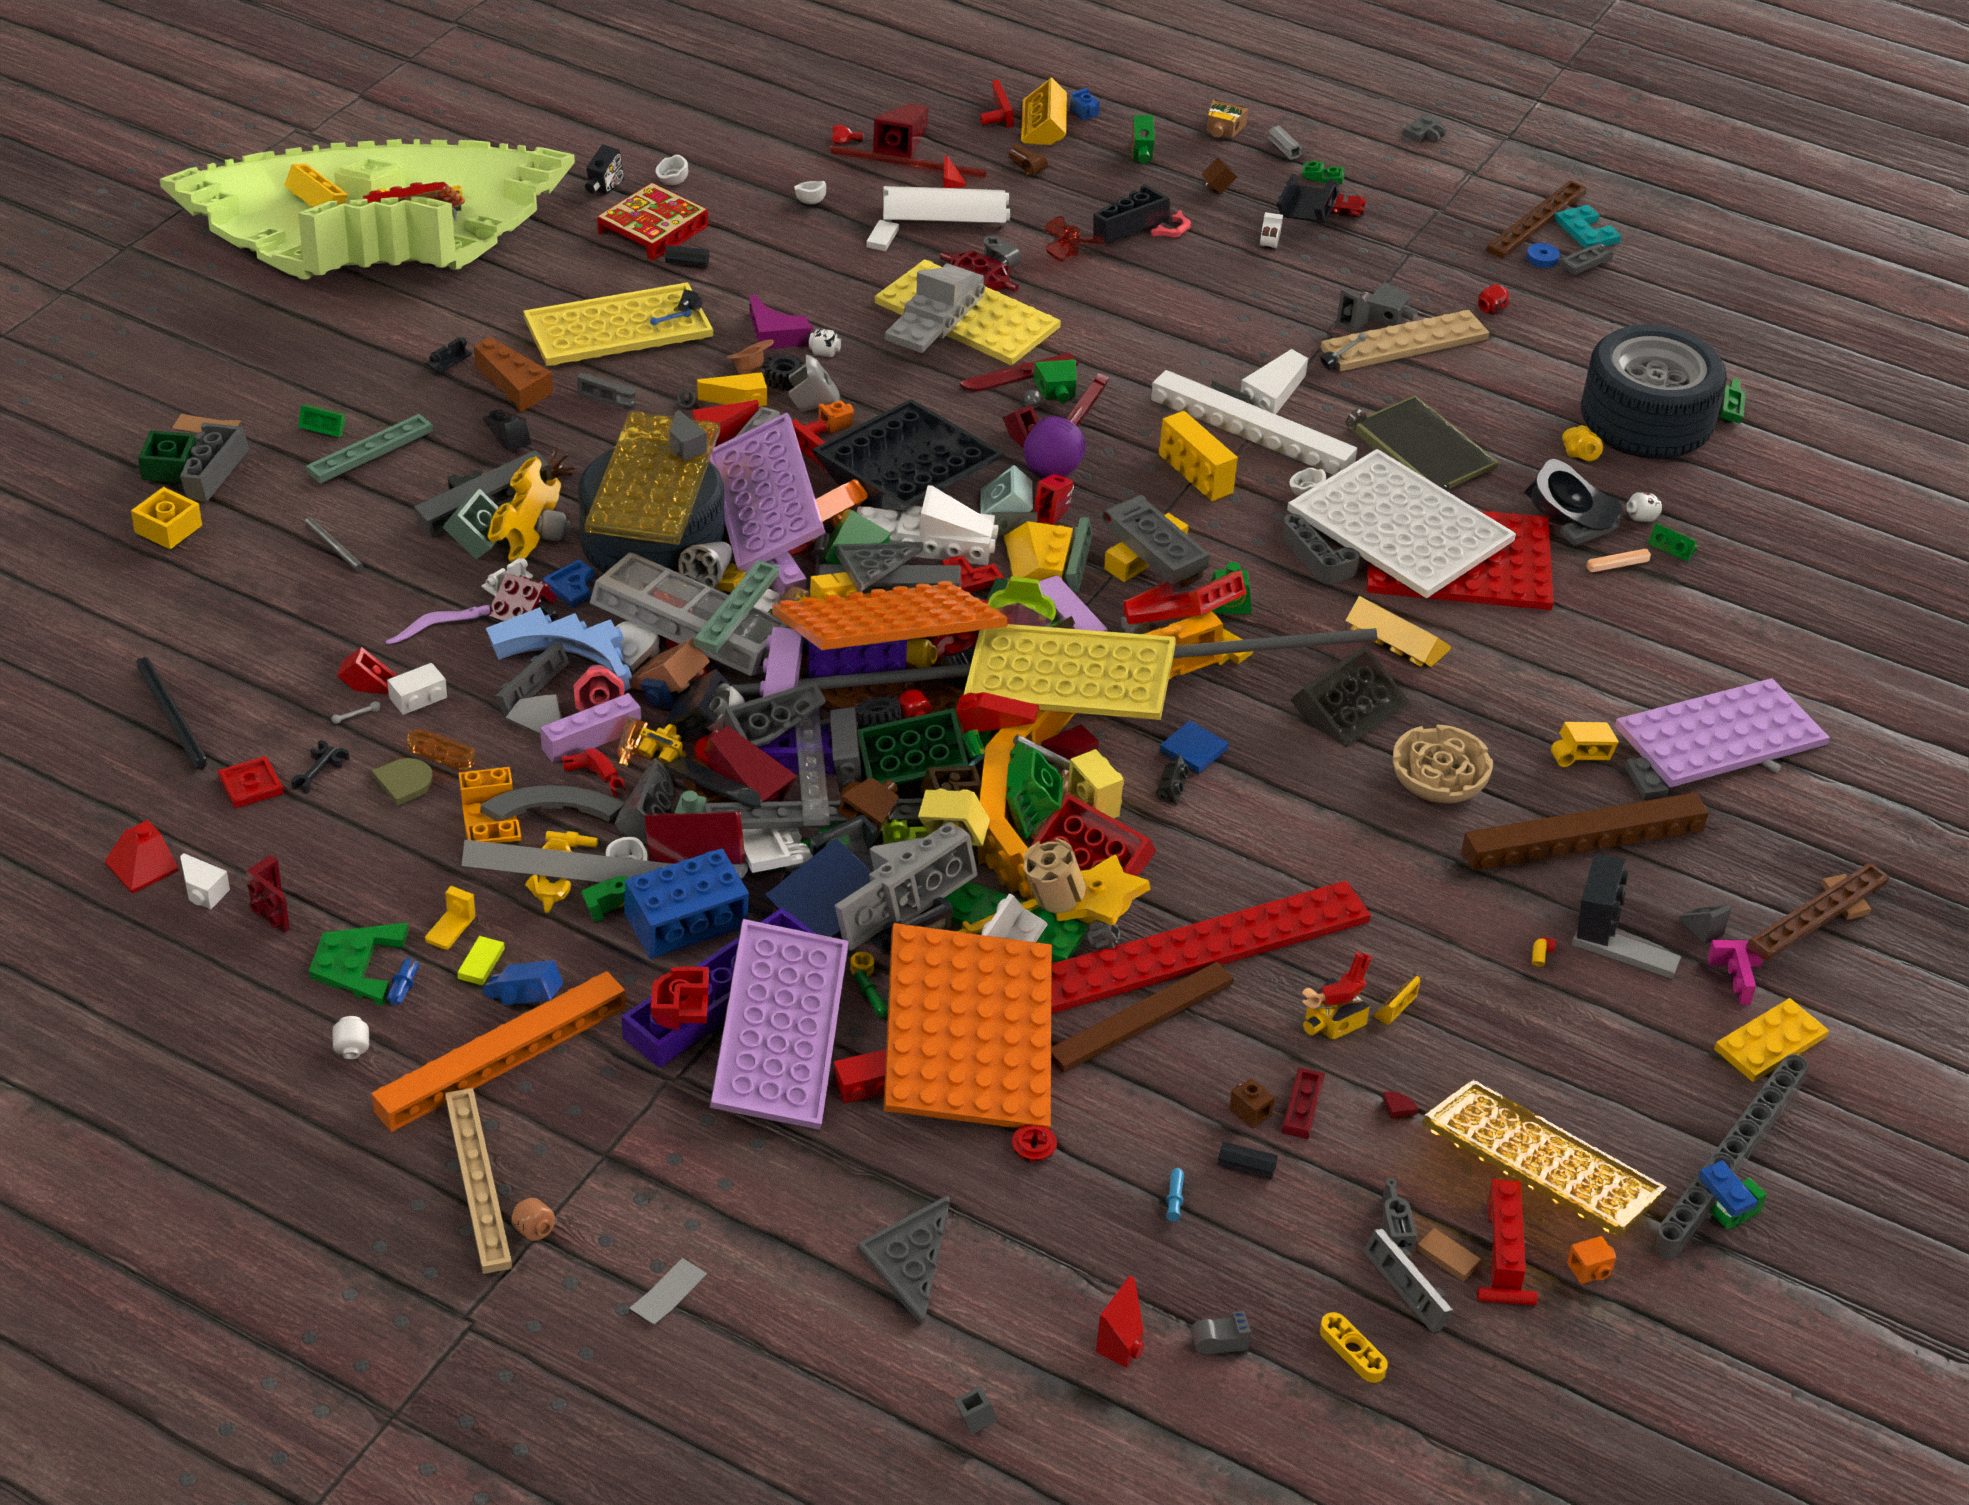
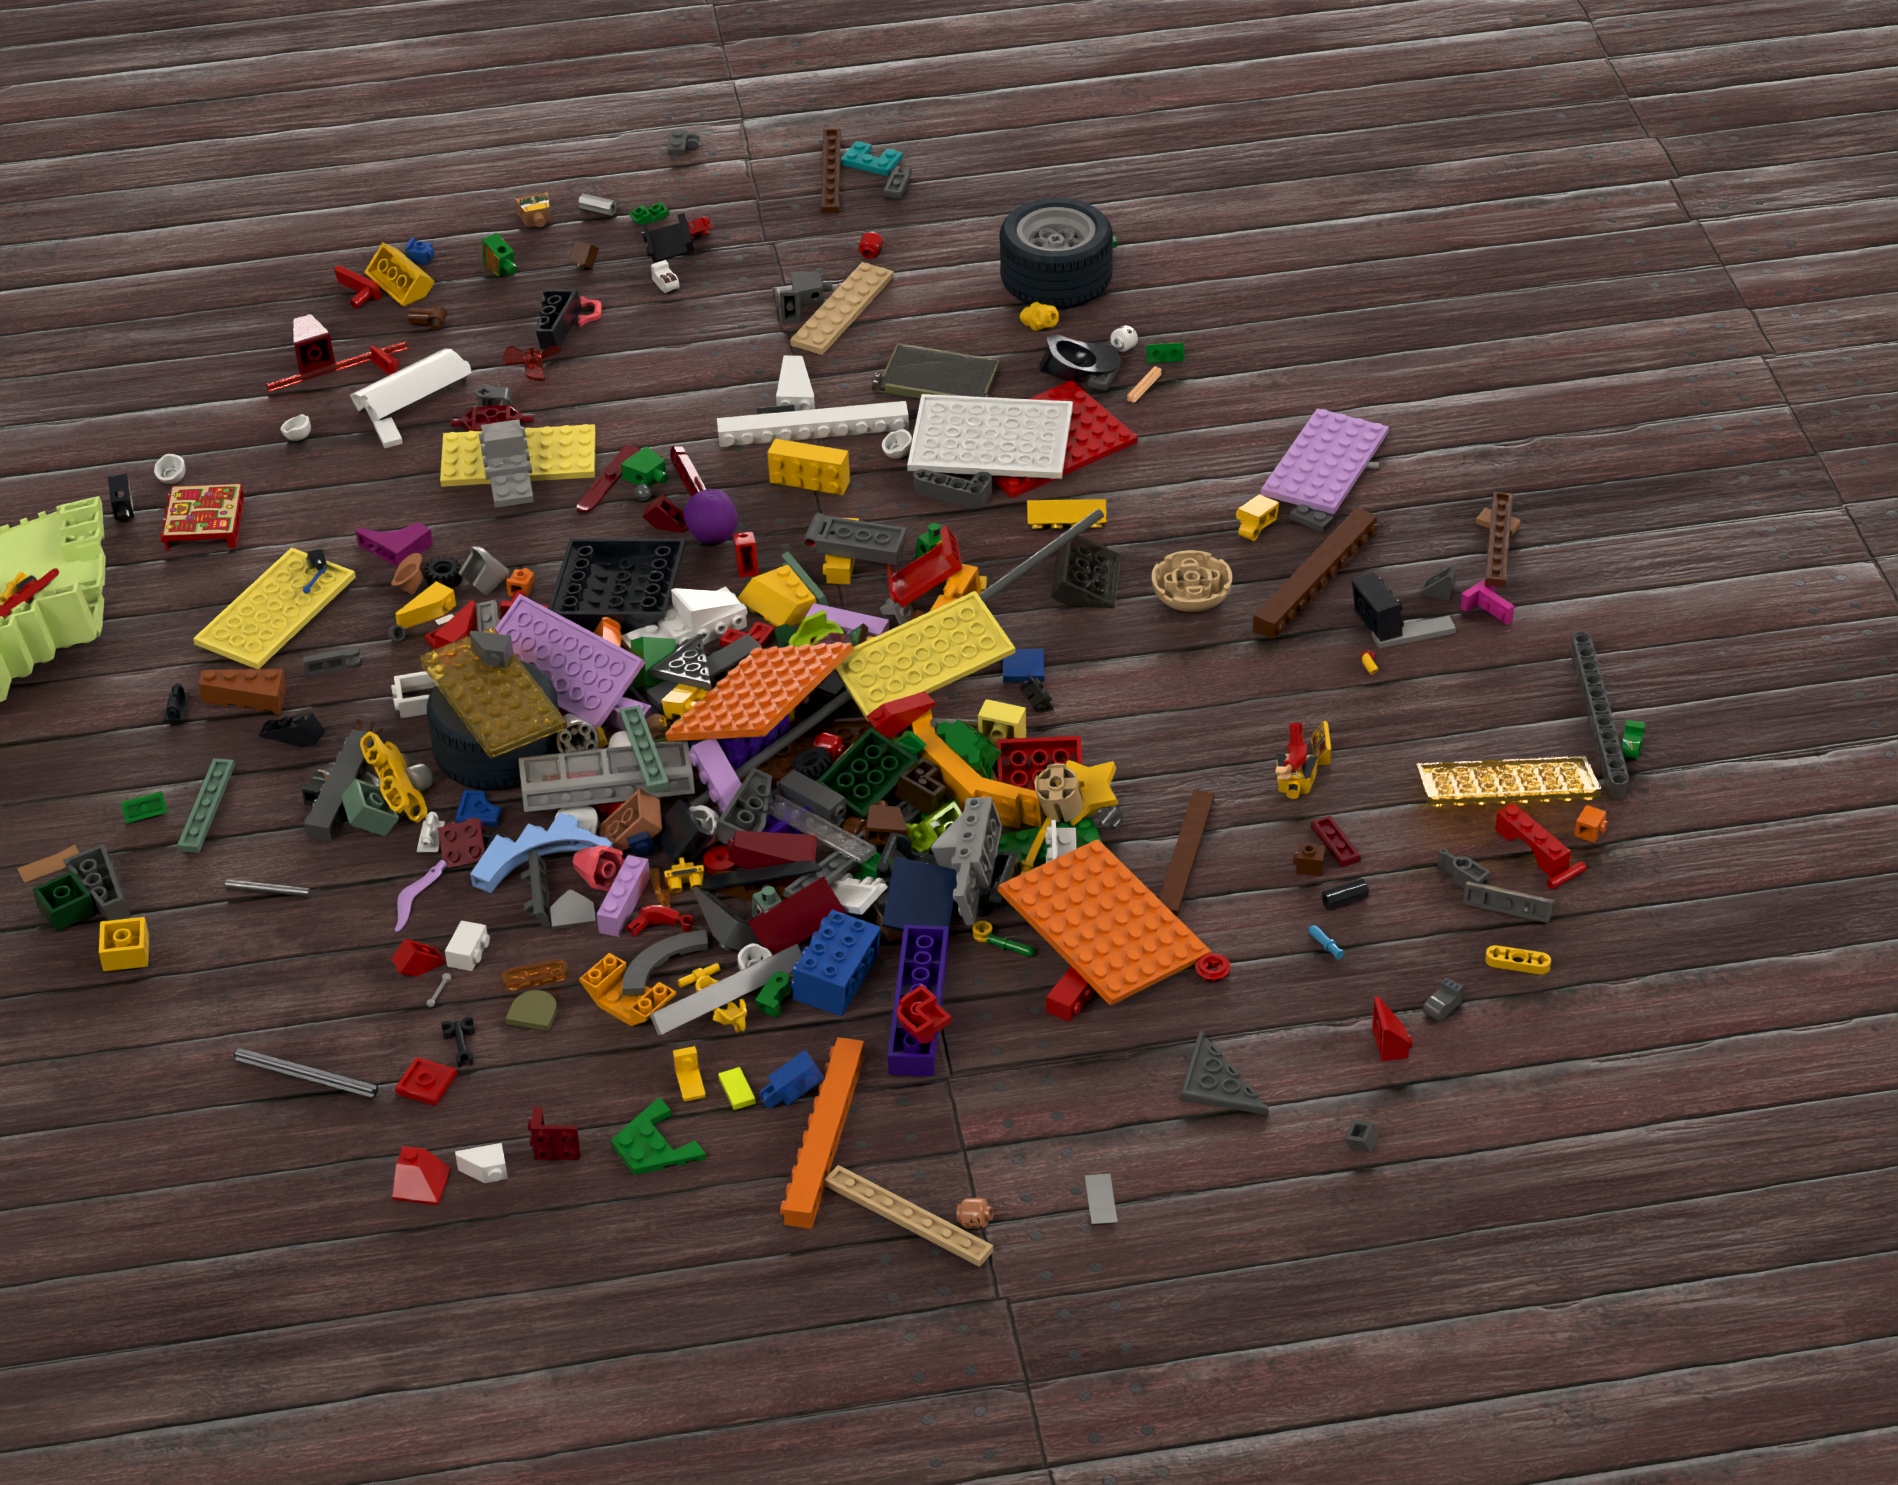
camera: 35 degrees left, 0 degrees up
(350, 1037) = (718, 1189): white head -> none
(402, 982) = (704, 1134): blue axle -> none
(687, 256) = (263, 528): black axle -> none
(780, 1025) = (989, 995): lavender plate -> none
(824, 343) = (447, 535): white head -> none
(843, 134) = (264, 372): red rock -> none
(958, 808) = (954, 790): light yellow brick -> none
(1007, 493) = (709, 570): light aqua slope -> none
(1011, 520) = (737, 583): dark grey hinge -> none
(1071, 742) = (954, 707): dark red slope -> none
(1204, 943) = (1176, 780): red plate -> none
(1331, 359) = (811, 349): hinge -> none
(1399, 1105) = (1389, 806): dark red tile -> none
(1448, 1254) = (1511, 873): medium nougat tile -> none
(1543, 255) = (864, 195): blue piece -> none
(1727, 1188) = (1624, 733): blue plate -> none
(1769, 1038) = (1547, 634): yellow plate -> none

